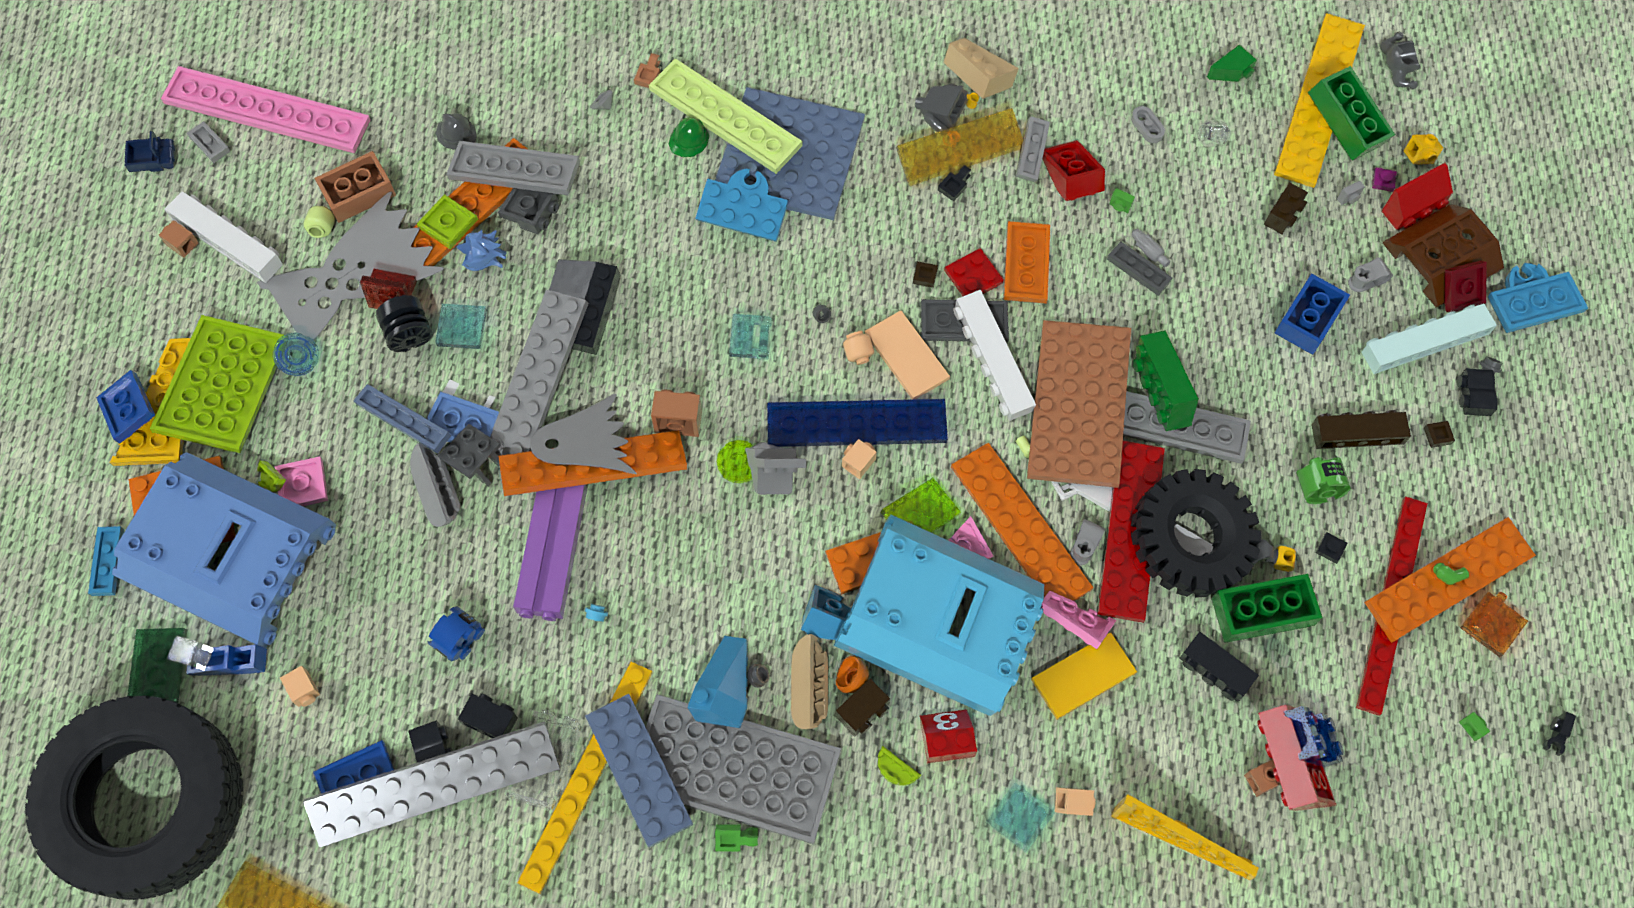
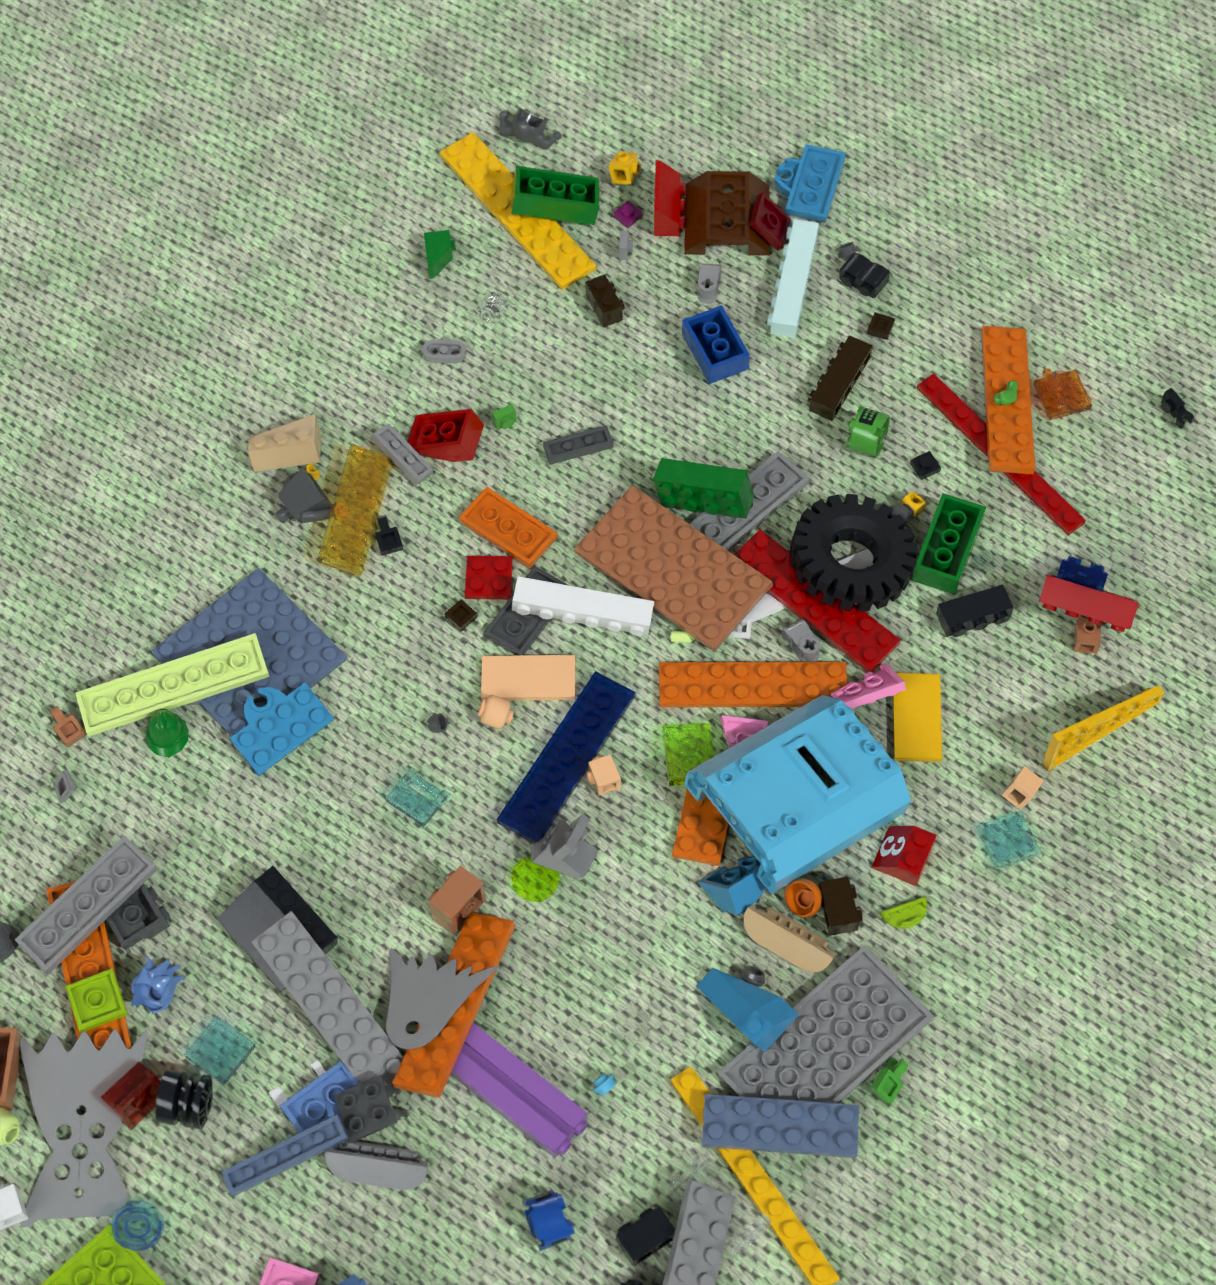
camera: 55 degrees left, 5 degrees down
(1150, 247) = (563, 424): light grey piece -> none
(1474, 726) = (1136, 462): bright green plate -> none

